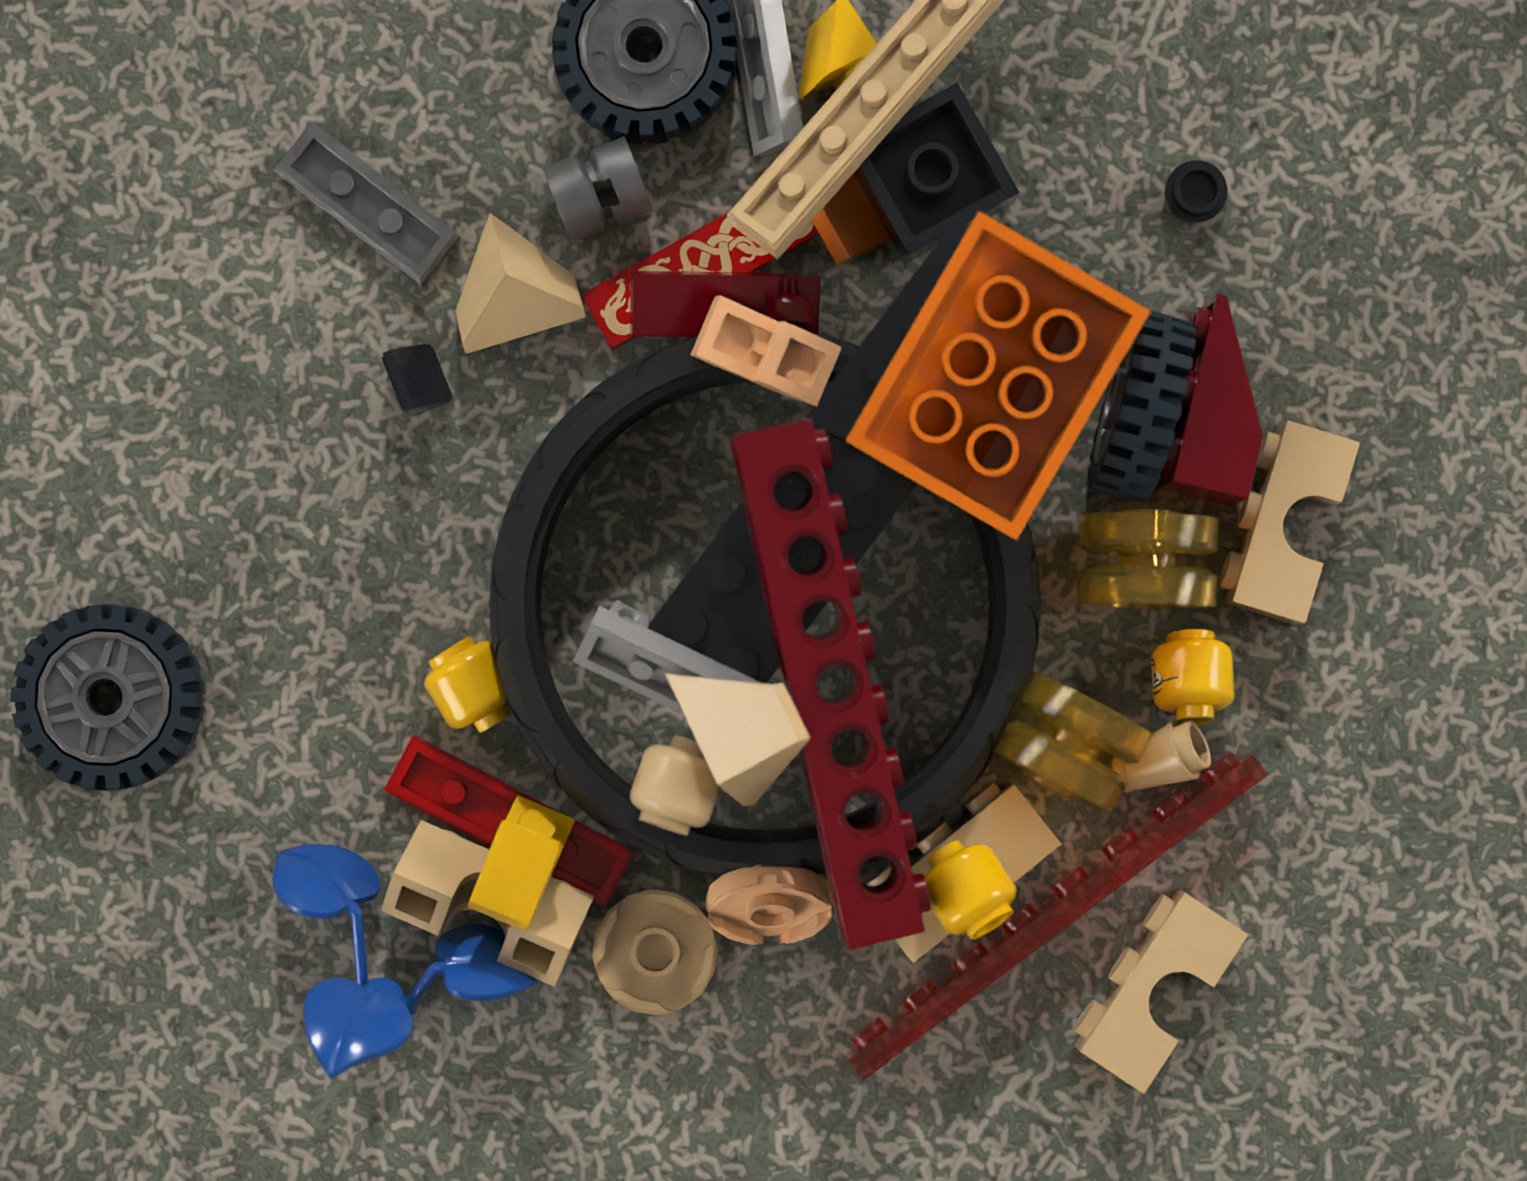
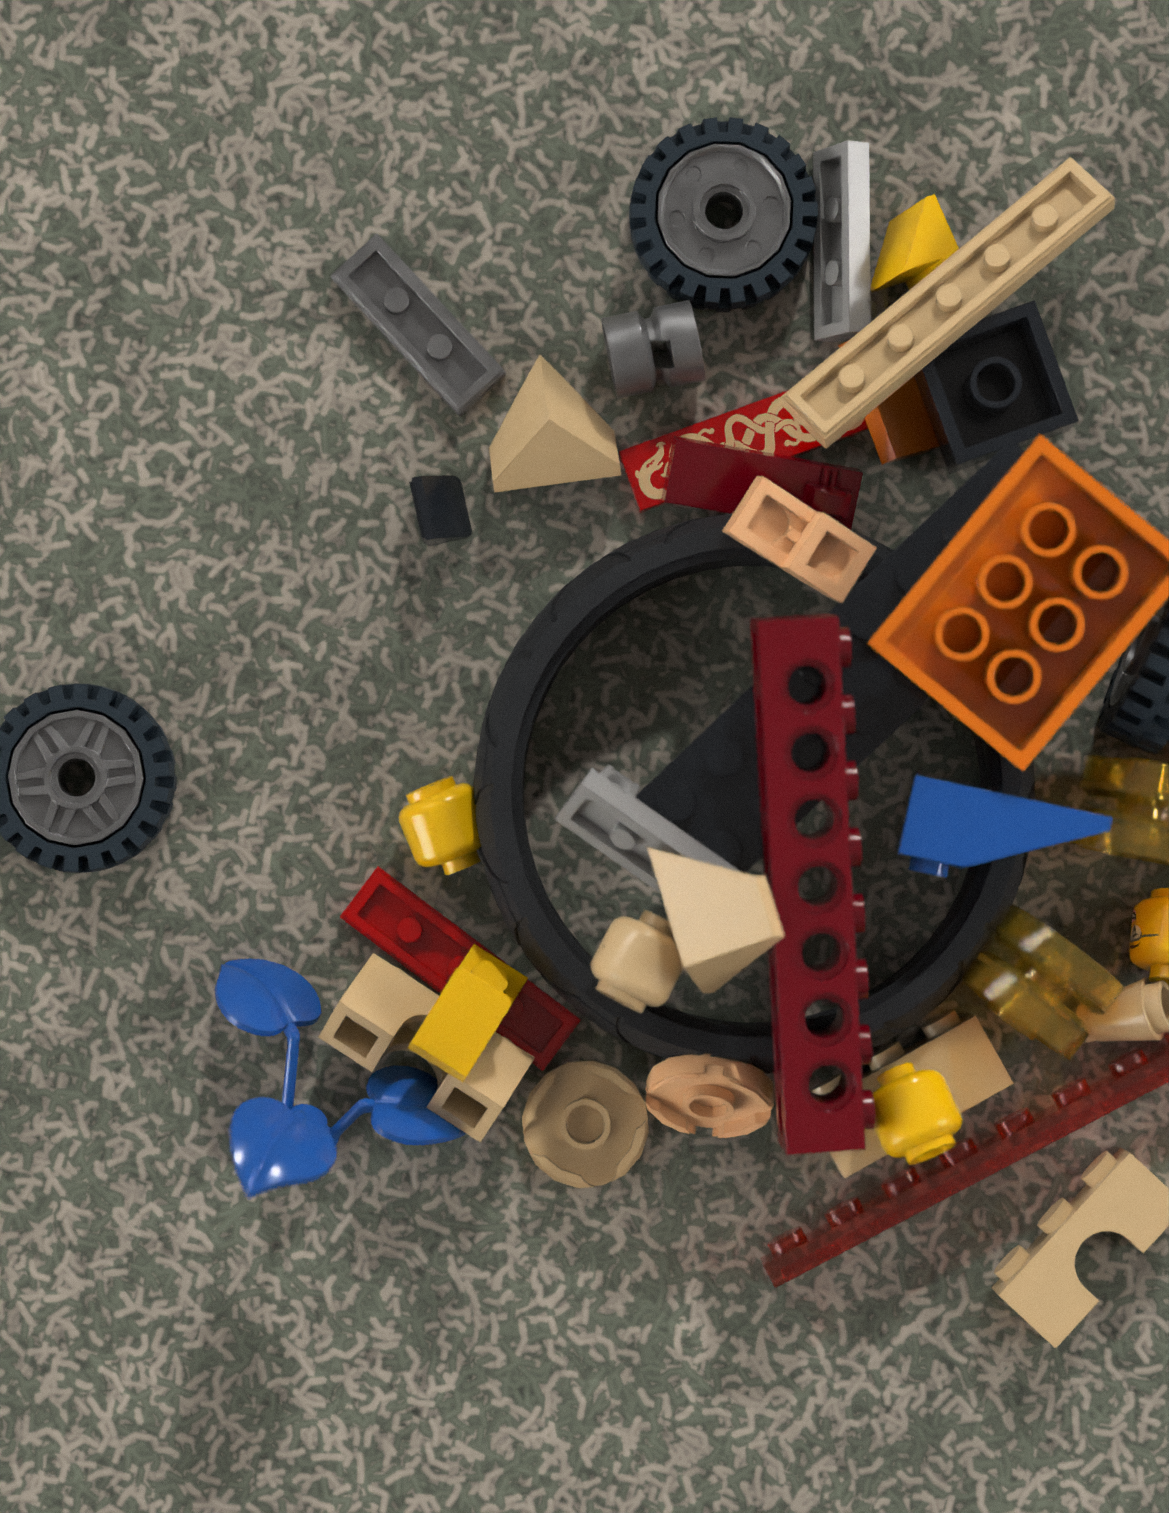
camera: 20 degrees right, 0 degrees up
(979, 601) = (973, 826): none -> blue slope

